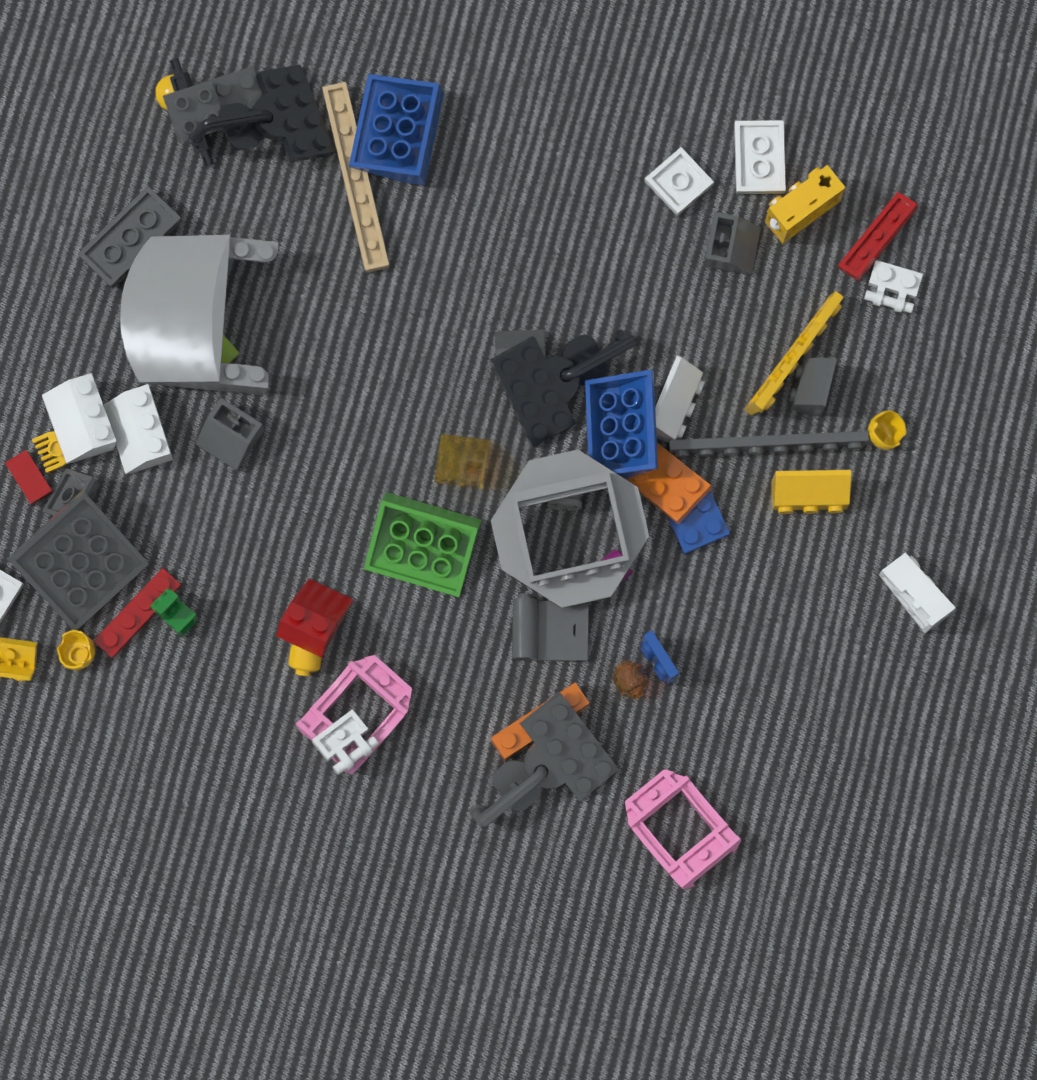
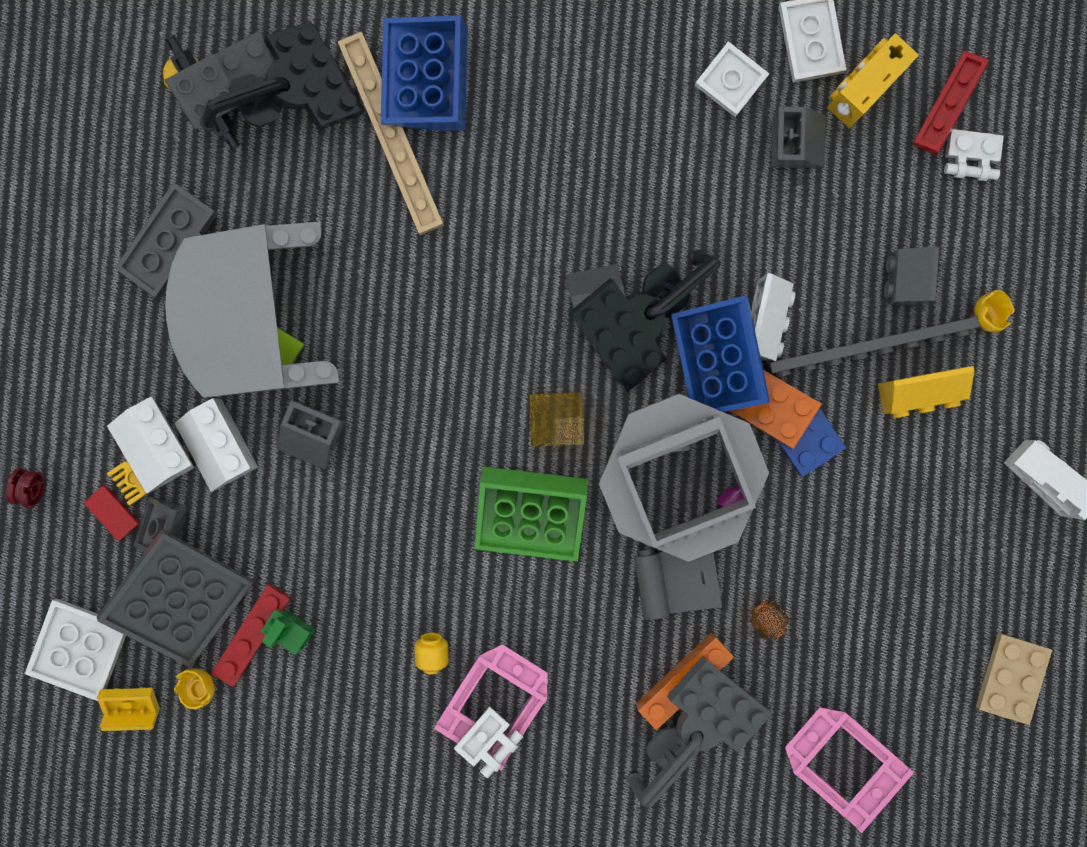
camera: 10 degrees left, 10 degrees up
(313, 617) = (432, 613): red slope -> none
(653, 650) = (802, 602): blue plate -> none
(764, 396) = (864, 290): yellow wing -> none
(855, 777) = (1013, 678): none -> tan plate

